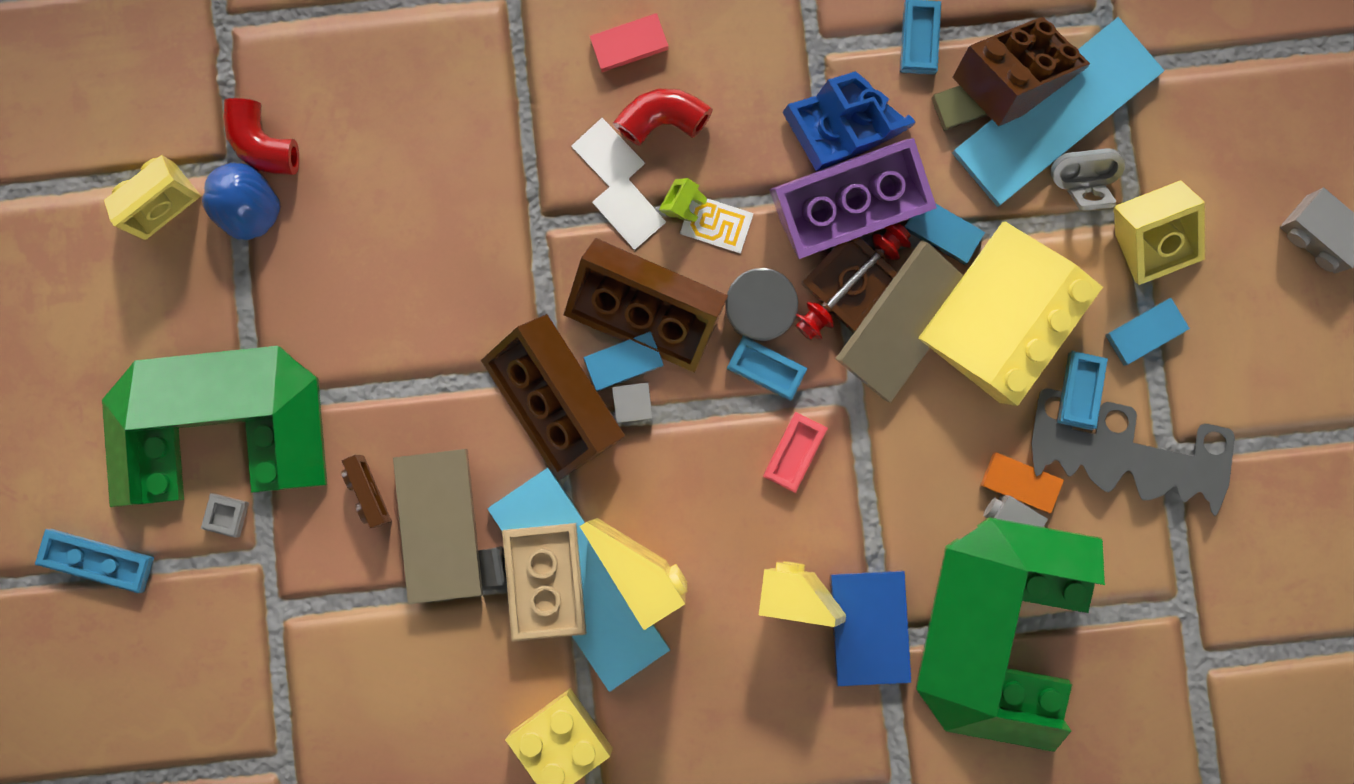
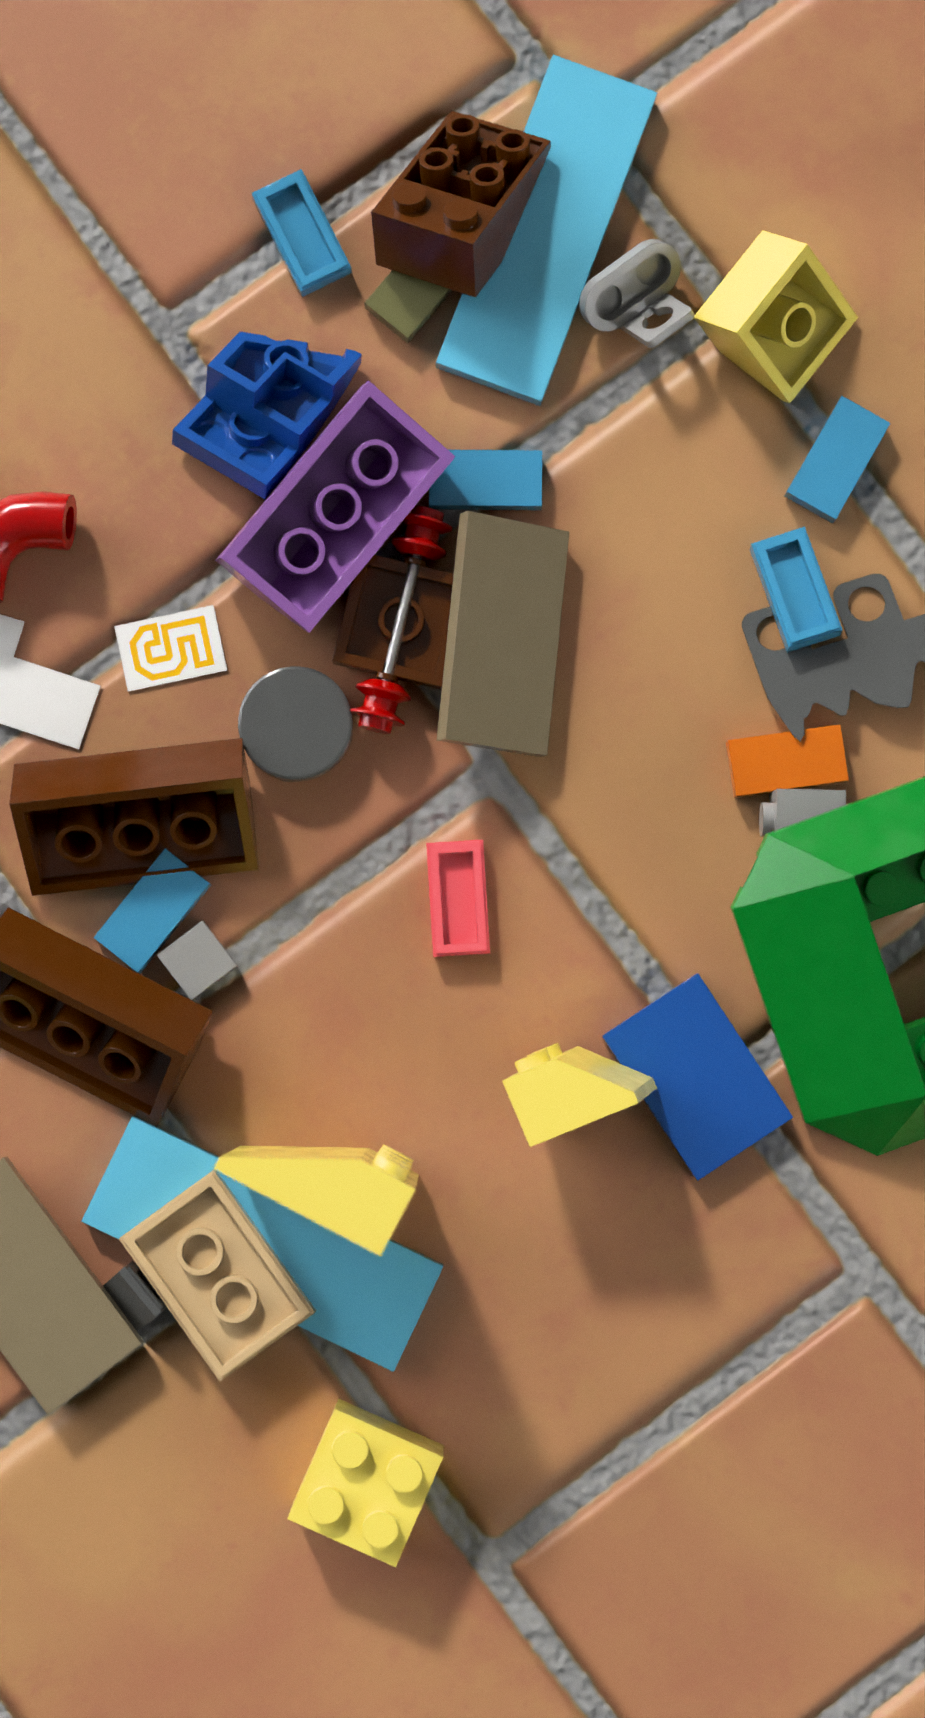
camera: 40 degrees left, 0 degrees up
(679, 198) = (99, 646): lime tile -> none
(766, 368) = (353, 806): dark azure tile -> none
(1010, 314) = (637, 543): light yellow slope -> none

